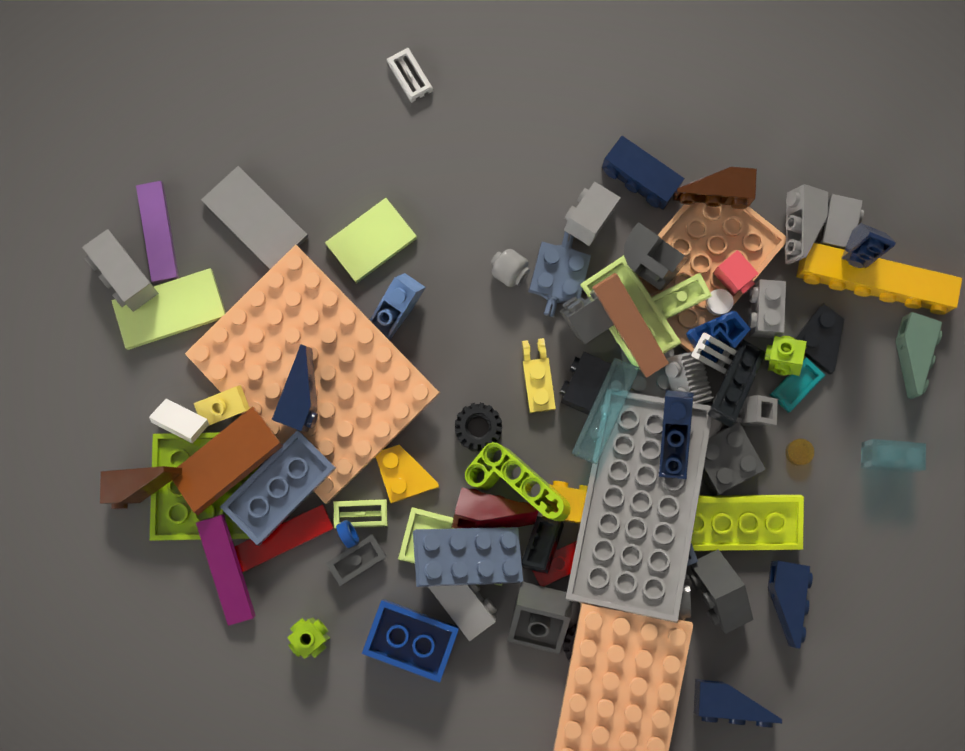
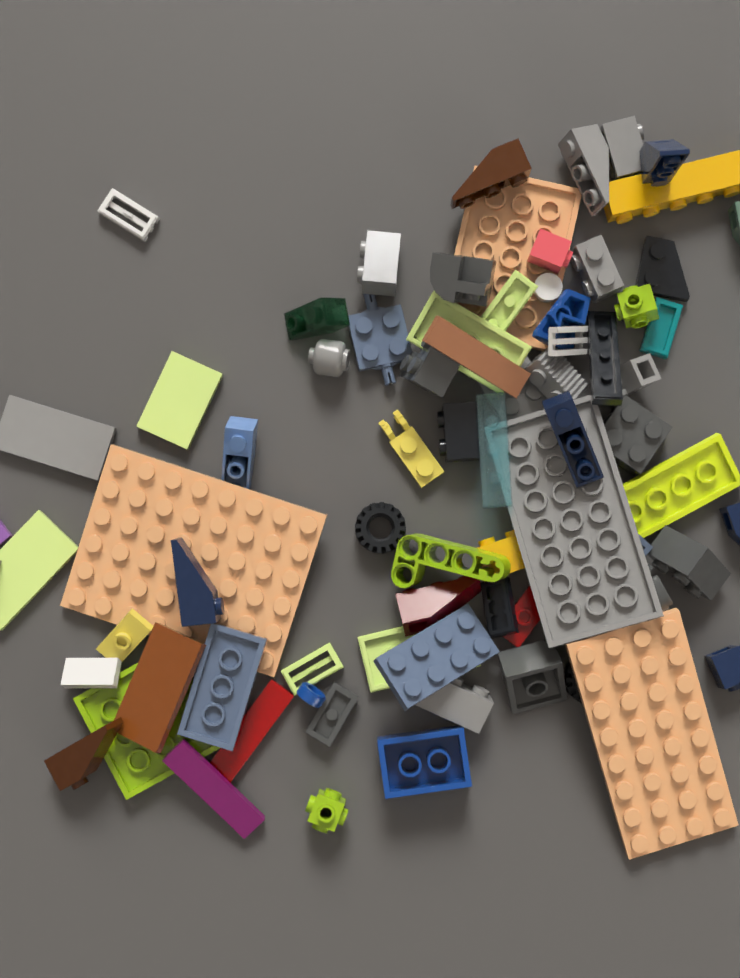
camera: 20 degrees left, 5 degrees up
(403, 474) = (332, 610): yellow wing -> none
(517, 231) = (317, 318): none -> clear green slope
(642, 173) = (408, 197): dark blue brick -> none
(799, 452) = (695, 391): clear yellow tile -> none

